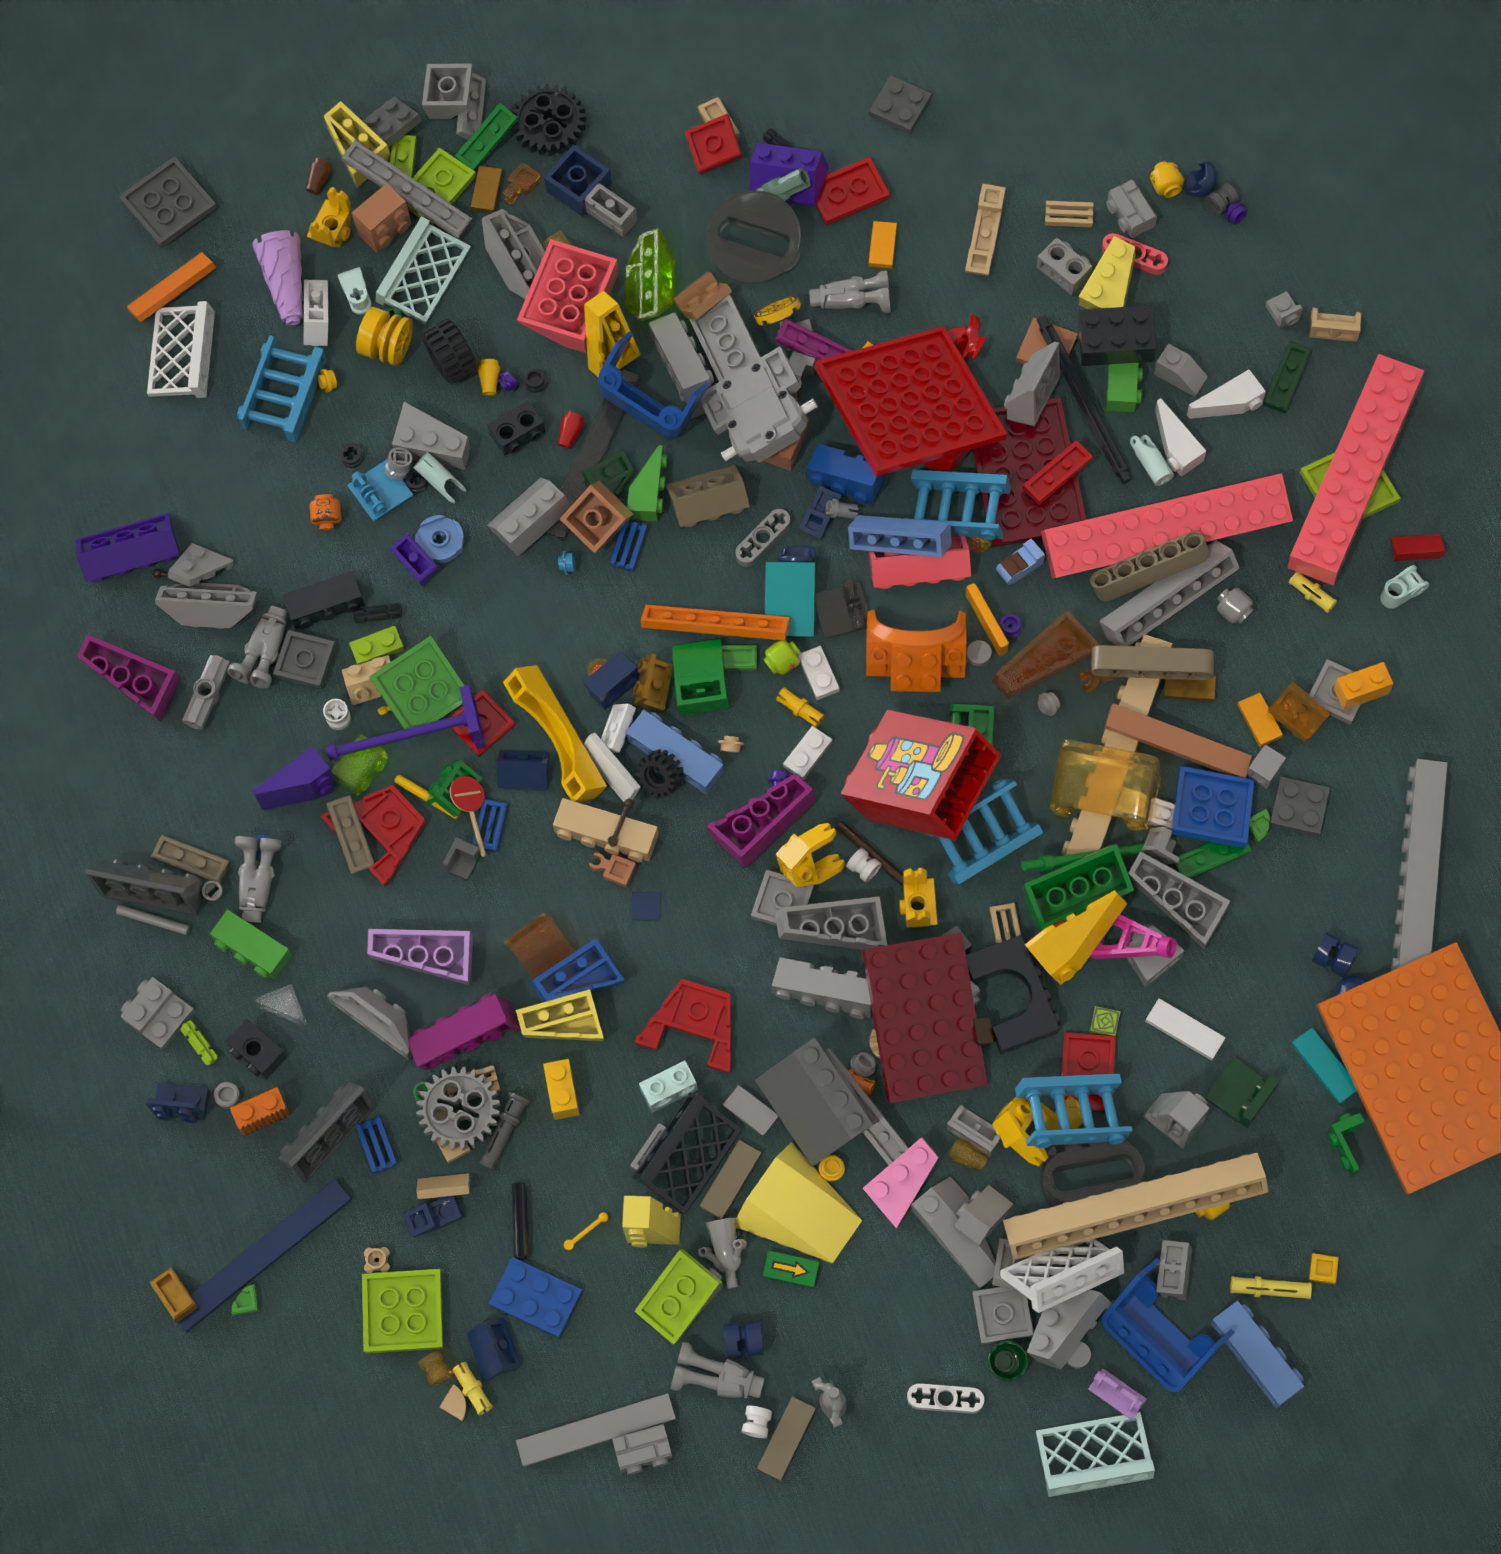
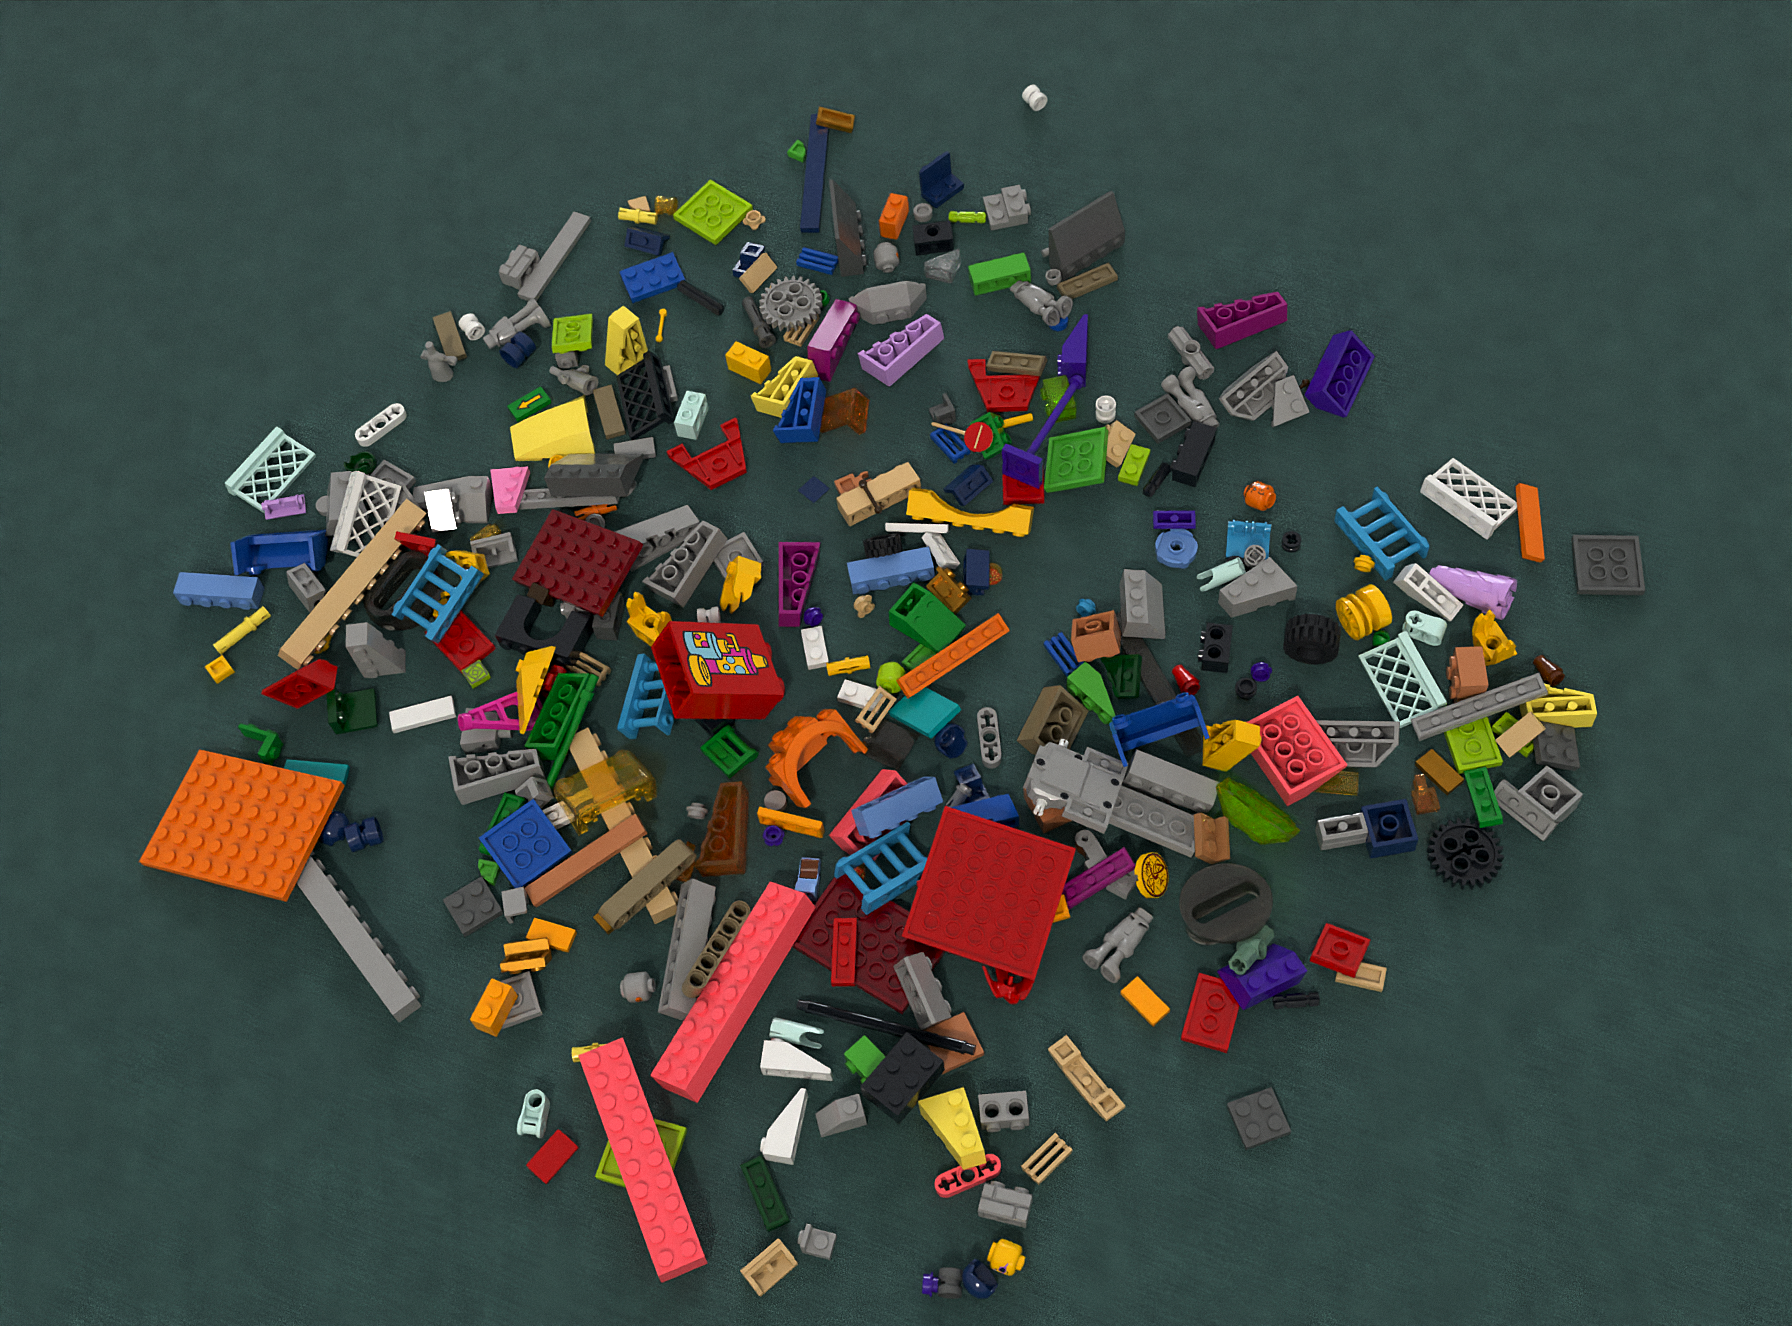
camera: 135 degrees right, 10 degrees down
(319, 1073) = (886, 257): none -> light grey head
(406, 144) = (1520, 734): none -> tan tile
(489, 375) = (1278, 662): yellow cone -> none
(821, 642) = (865, 723): none -> tan tile
(1037, 1187) = (416, 542): none -> red wing
(1268, 1136) = (304, 684): none -> red slope

